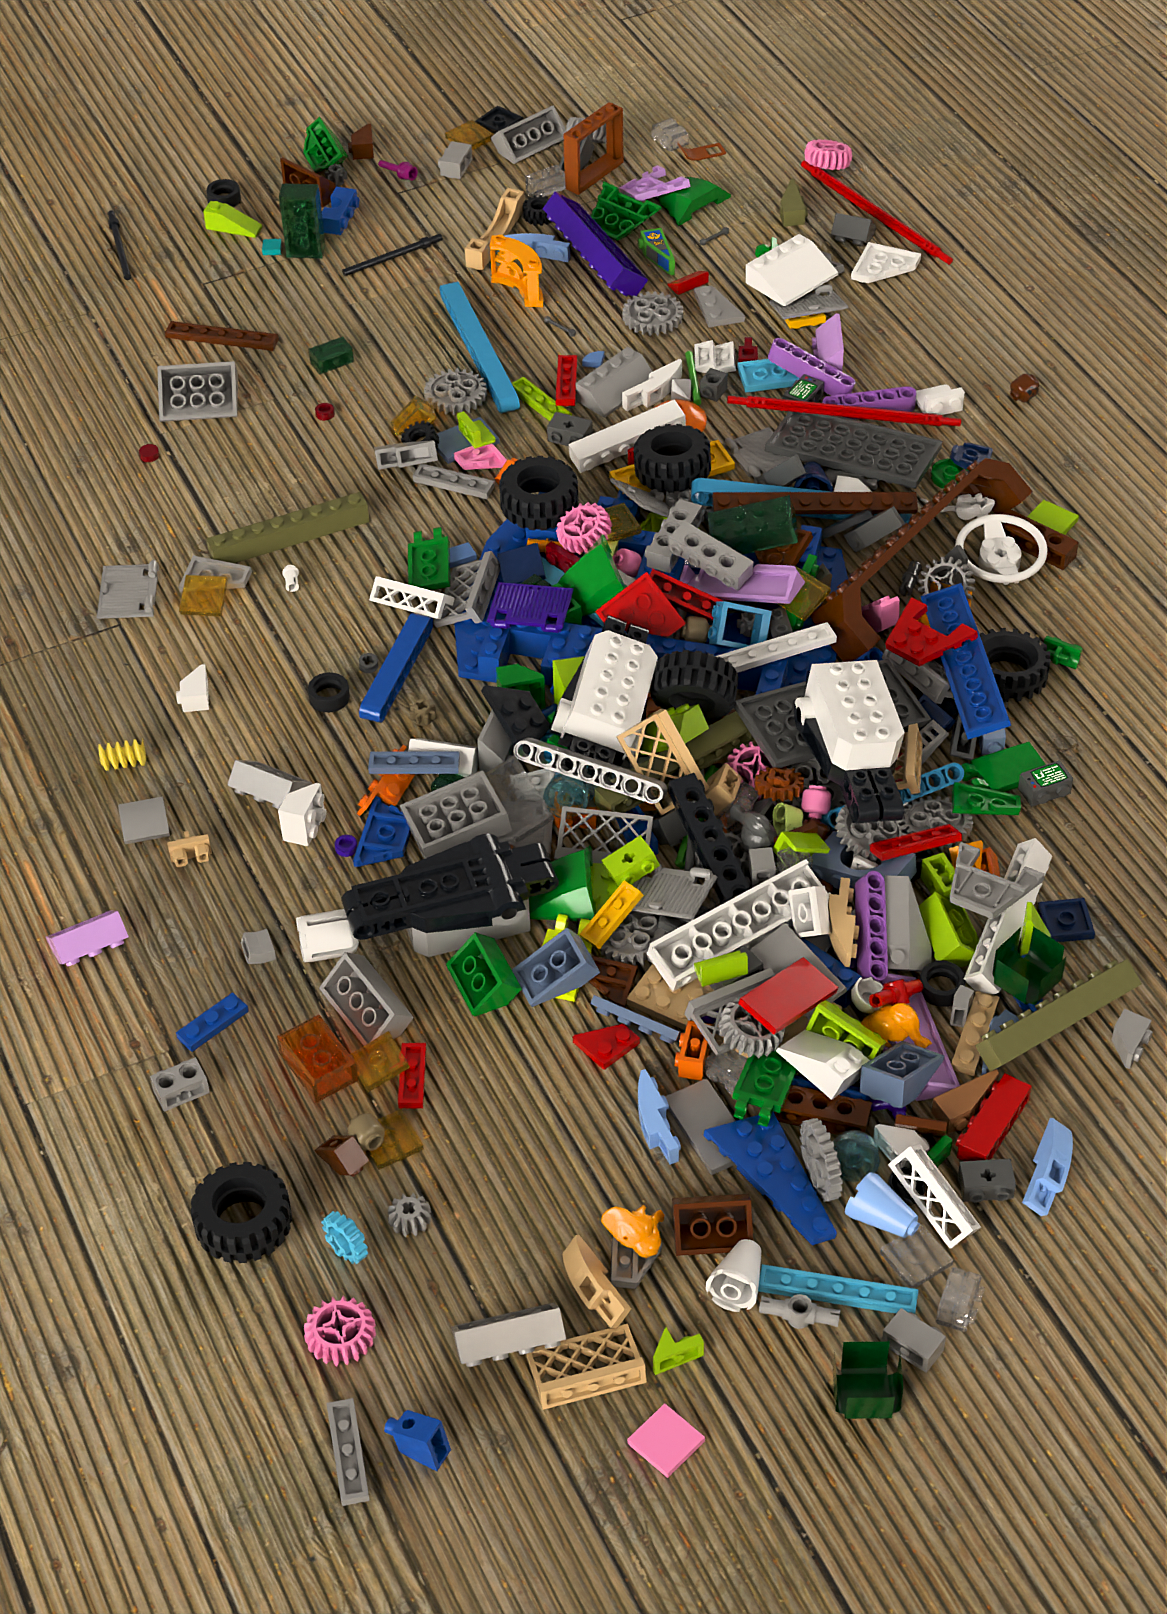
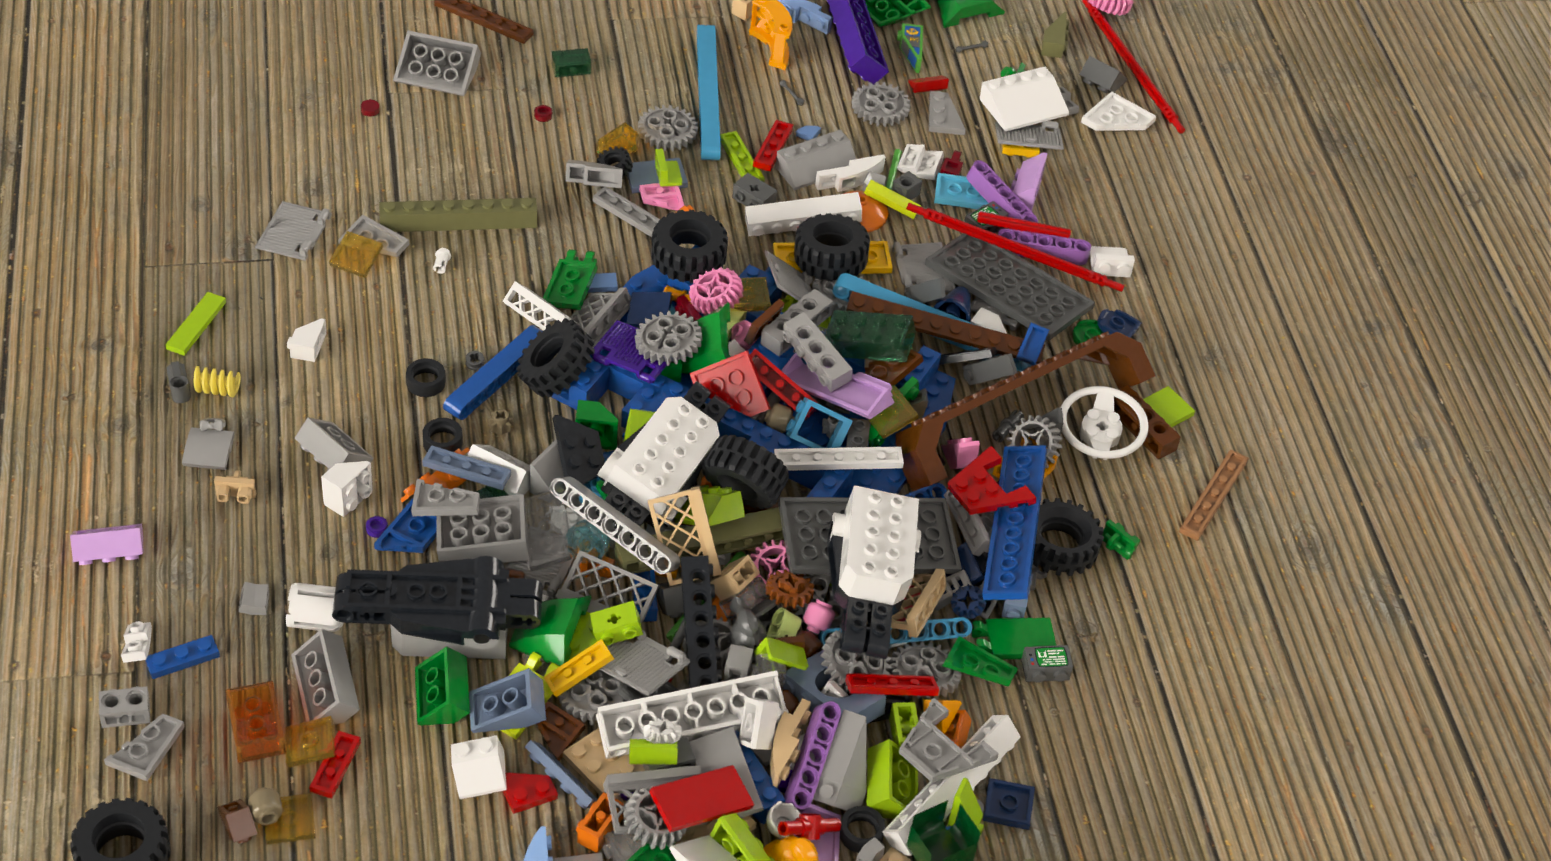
camera: 10 degrees right, 0 degrees up
(73, 706) = (195, 323): none -> lime tile
(84, 766) = (178, 382): none -> dark grey piece
(133, 796) = (218, 424): none -> light grey piece
(161, 1020) = (137, 641): none -> white slope
(220, 1117) = (148, 749): none -> light grey wing
(370, 731) = (442, 425): none -> black tyre
(402, 801) = (440, 501): none -> light grey wing
(466, 644) = (552, 375): none -> black tyre
(554, 1035) = (479, 767): none -> white slope
(573, 586) = (668, 338): none -> light grey gear
(646, 540) = (766, 318): none -> reddish brown tile
(703, 399) = (889, 198): none -> neon yellow tile
(731, 944) = (670, 732): none -> white gear
(842, 388) = (1022, 225): none -> red axle
(905, 494) = (1032, 344): none -> blue tile
(944, 756) = (975, 607): none -> dark blue gear
(970, 507) = (1093, 373): white animal -> none
(1024, 388) = (1197, 272): reddish brown head -> none
(1129, 587) = (1213, 495): none -> medium nougat tile

